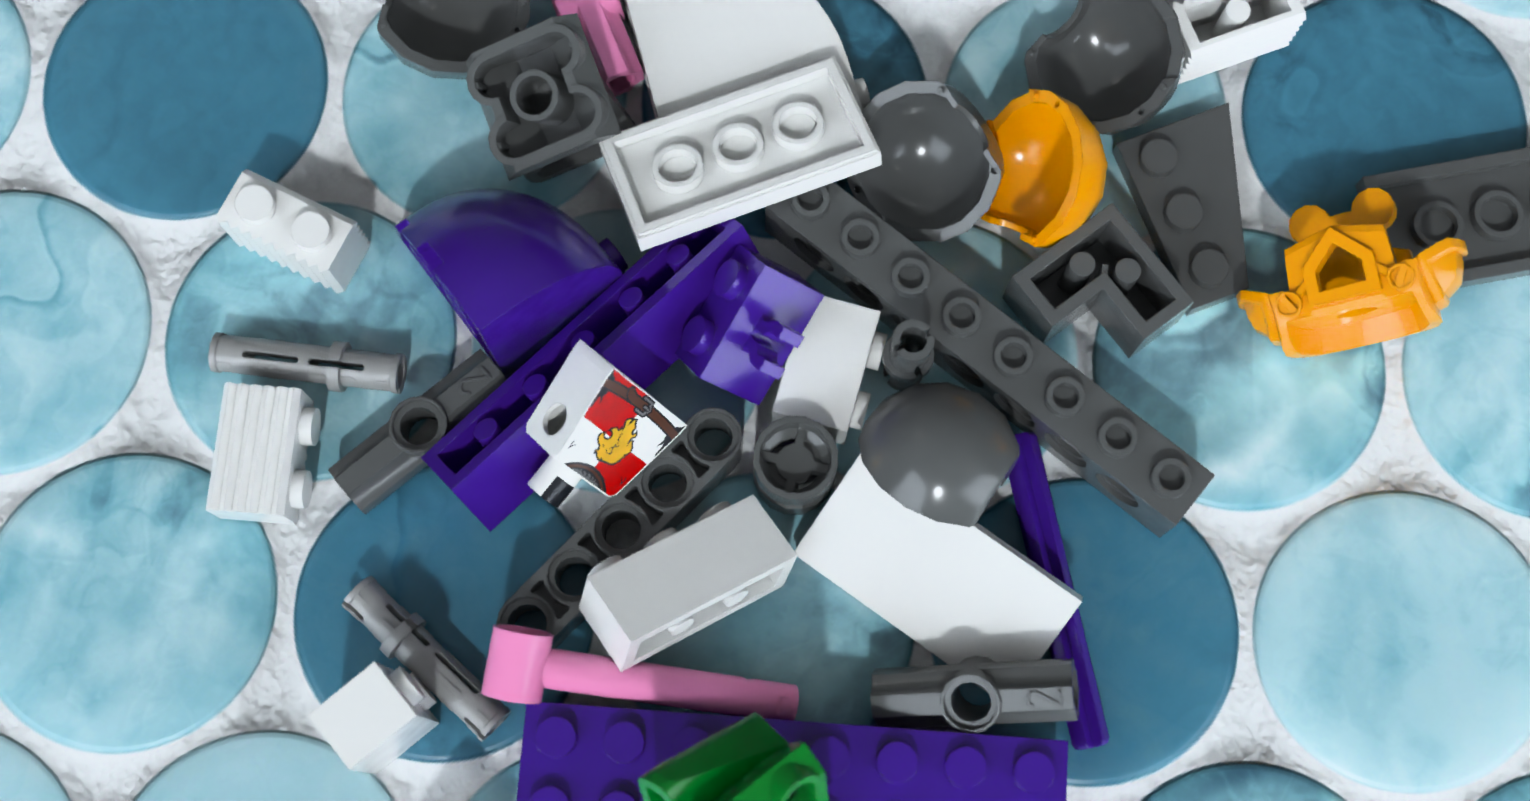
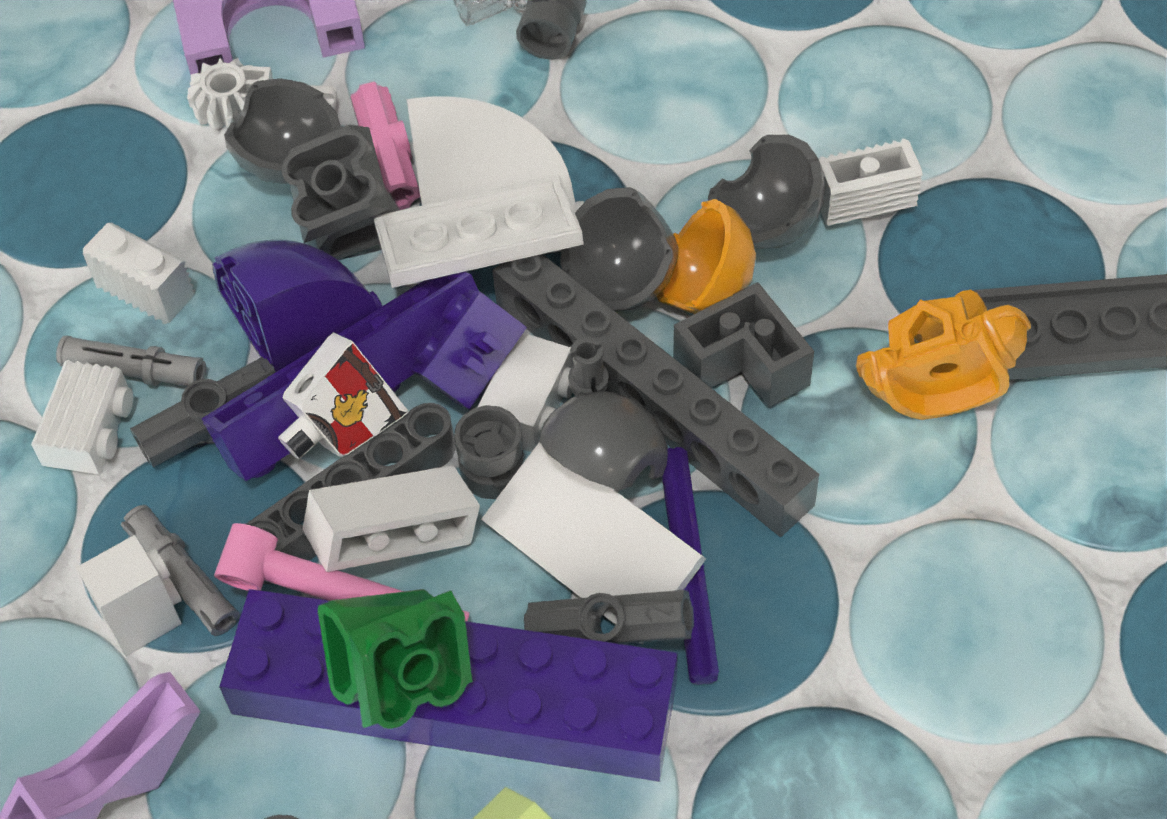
camera: 10 degrees right, 20 degrees down
(1191, 203) = (829, 305): dark grey wing -> none

